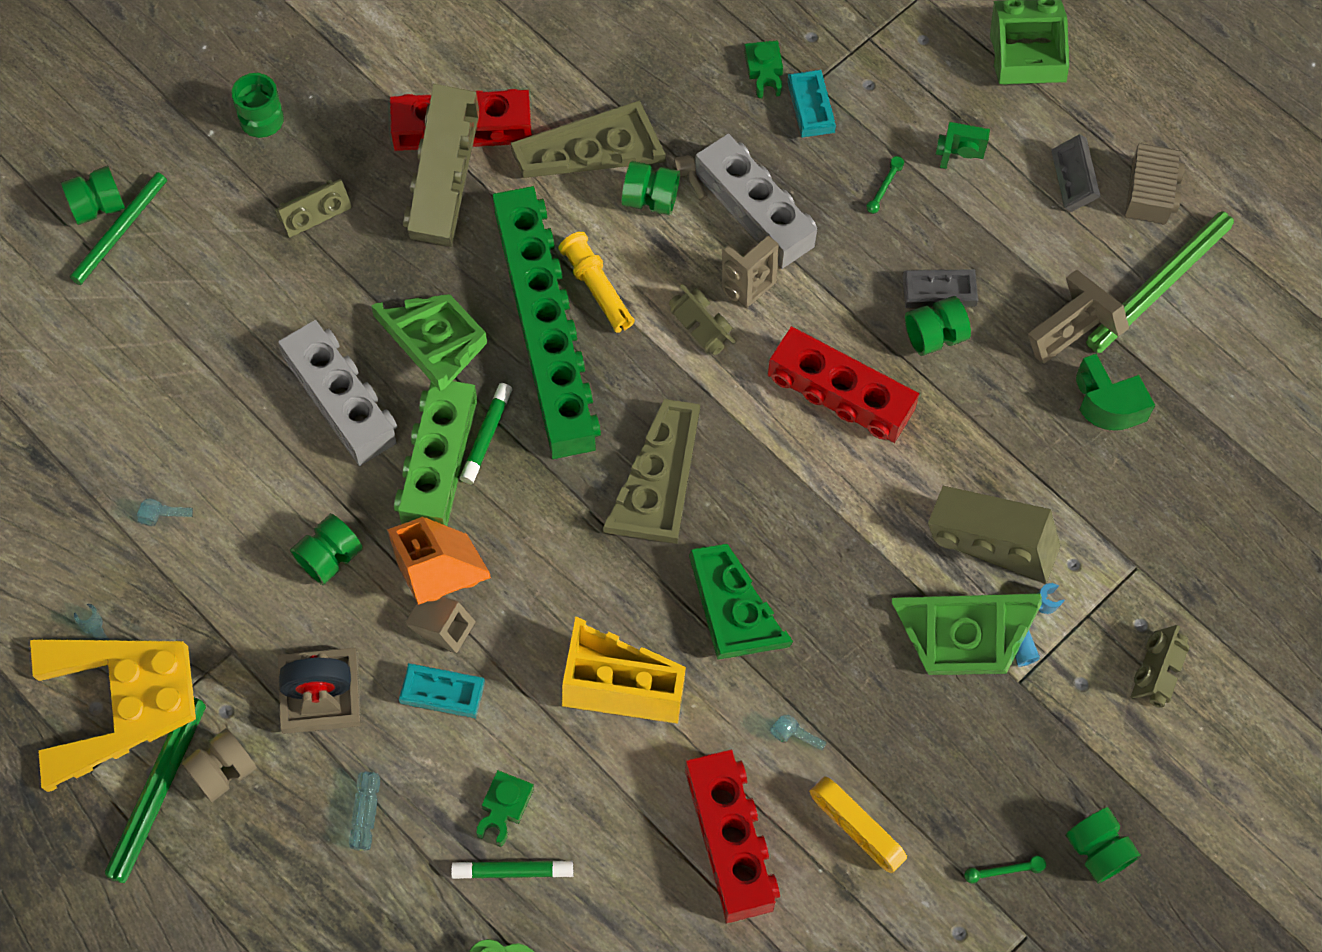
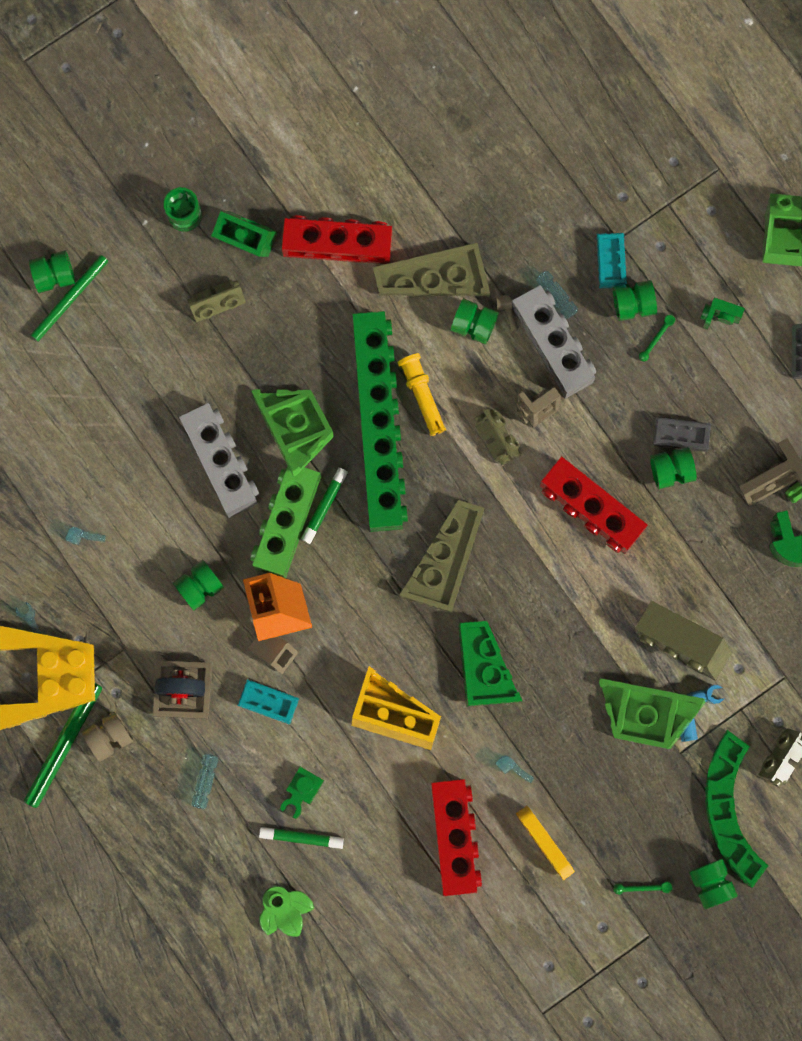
camera: 15 degrees right, 15 degrees up
(340, 121) = (244, 233): none -> green brick
(443, 165) = (317, 289): olive wedge -> none
(756, 151) = (561, 299): none -> clear light blue axle
(765, 65) = (581, 217): green plate -> none
(844, 142) = (634, 300): none -> green wheel
(1093, 753) = (722, 813): none -> green tile

